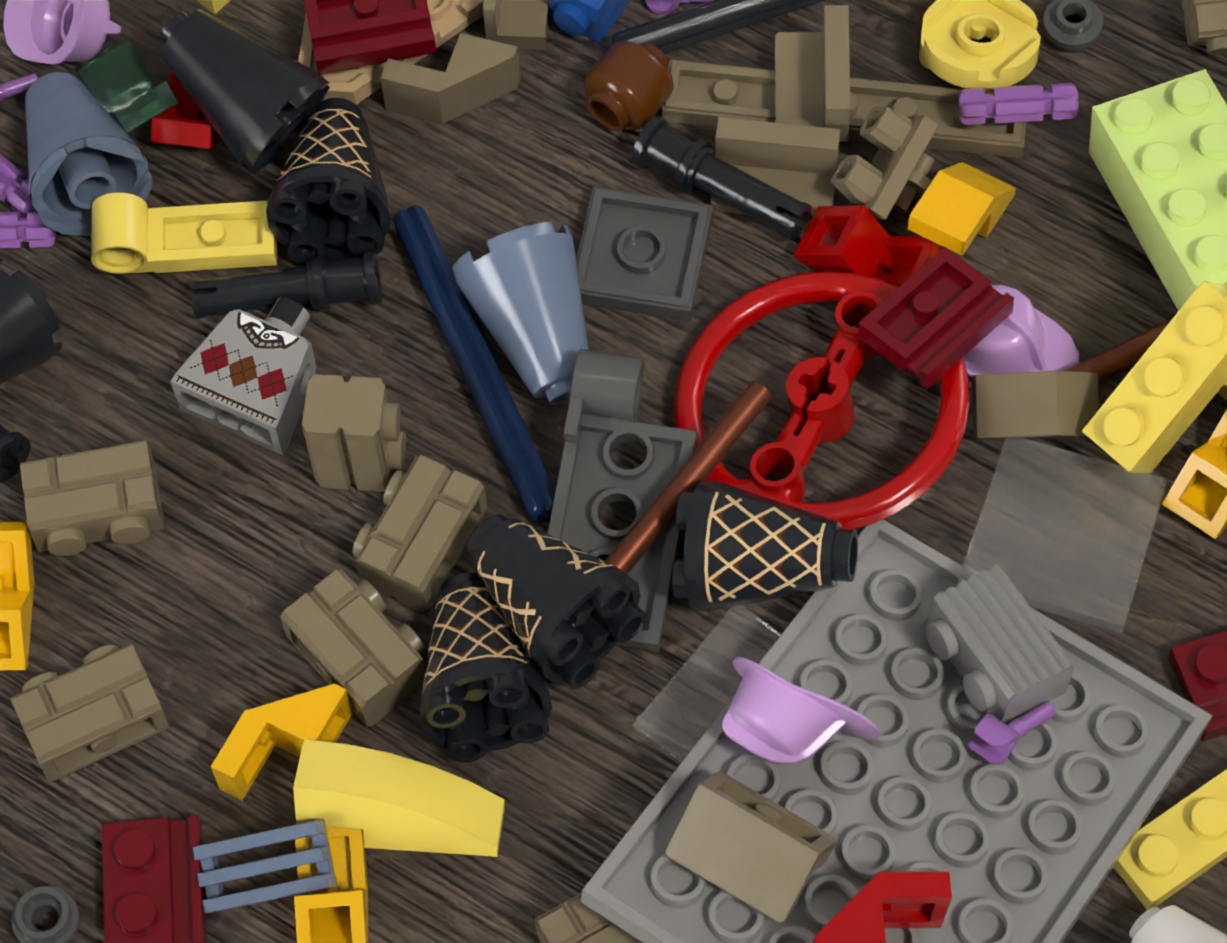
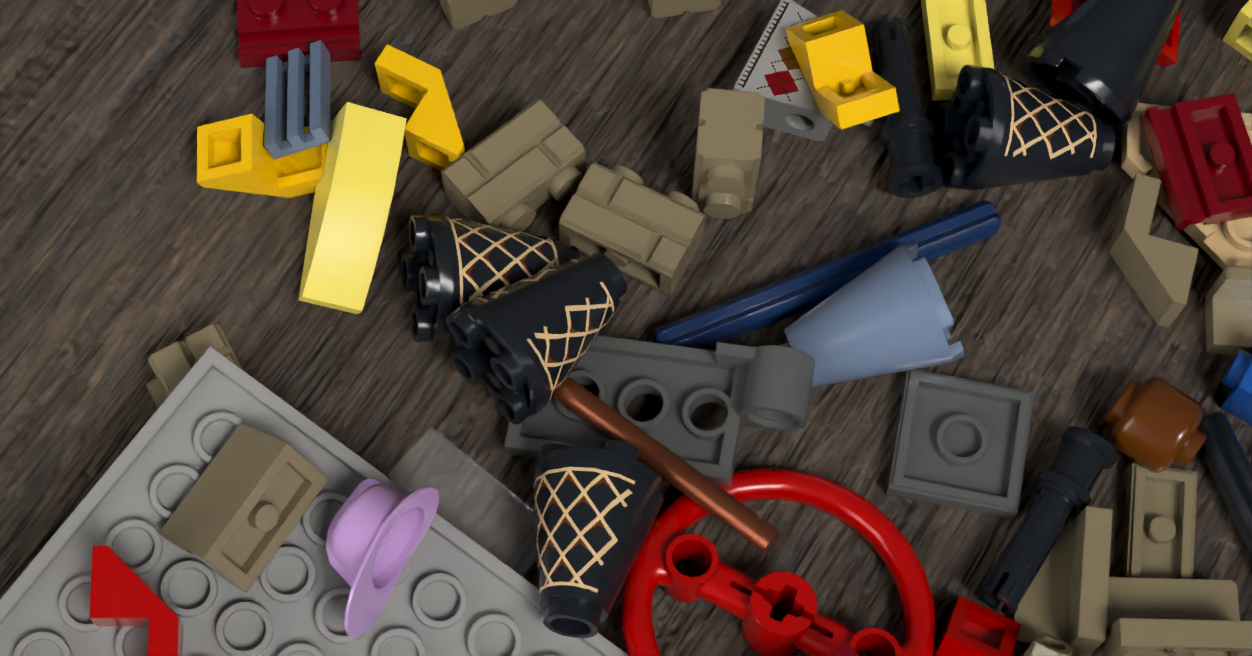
camera: 85 degrees right, 5 degrees up
(258, 328) = (839, 70): none -> yellow slope

